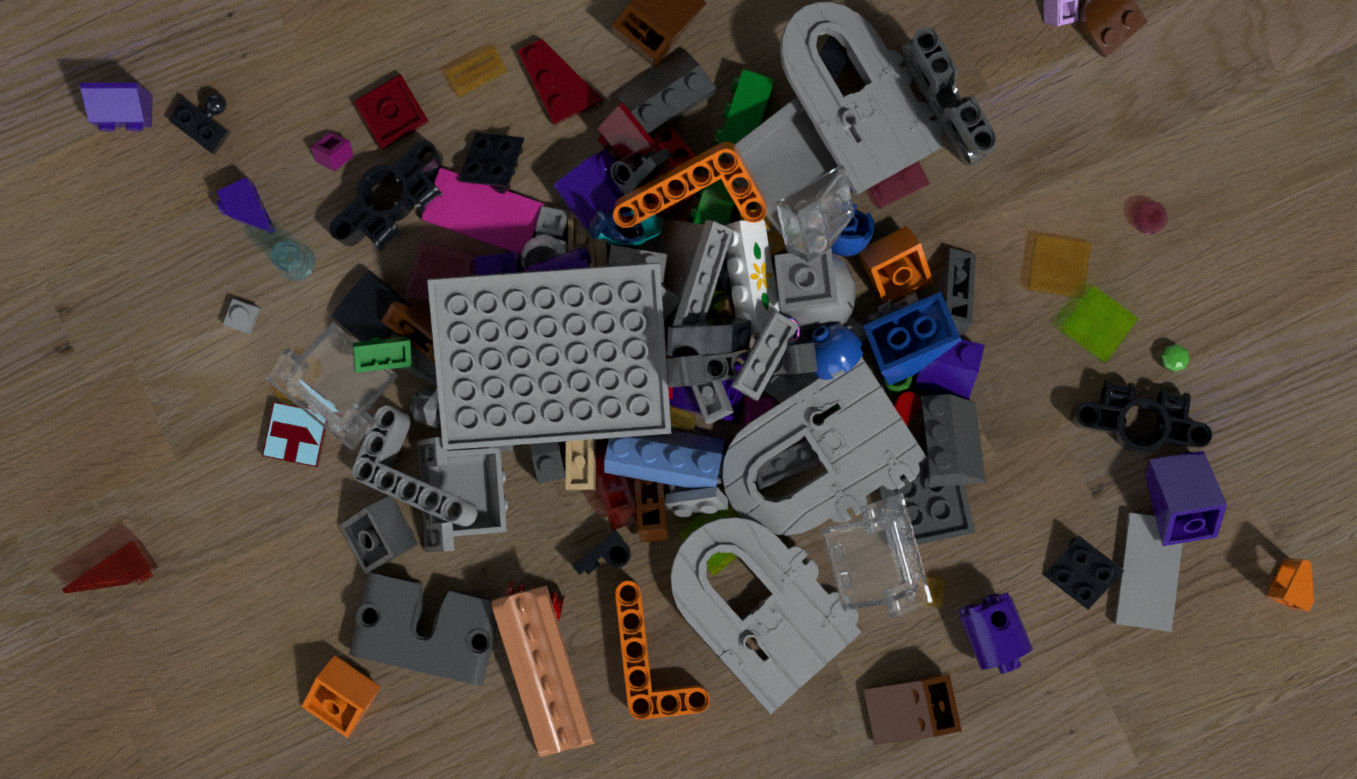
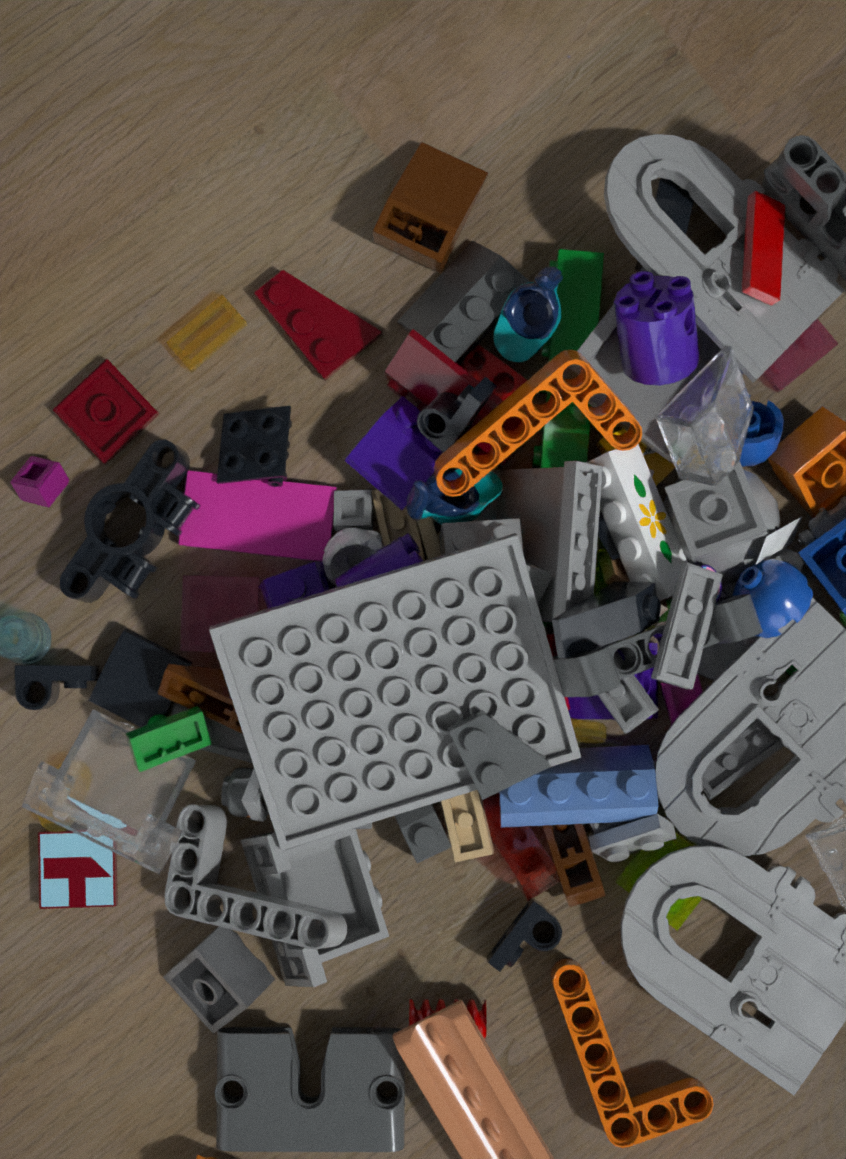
camera: 10 degrees left, 0 degrees up
(324, 296) = (50, 678): none -> black plate
(609, 416) = (494, 754): none -> dark grey wing
(709, 112) = (529, 317): none -> dark blue hair
(794, 141) = (657, 328): none -> dark purple cylinder
(850, 313) = (779, 539): none -> white sticker
(888, 102) = (763, 248): none -> red tile

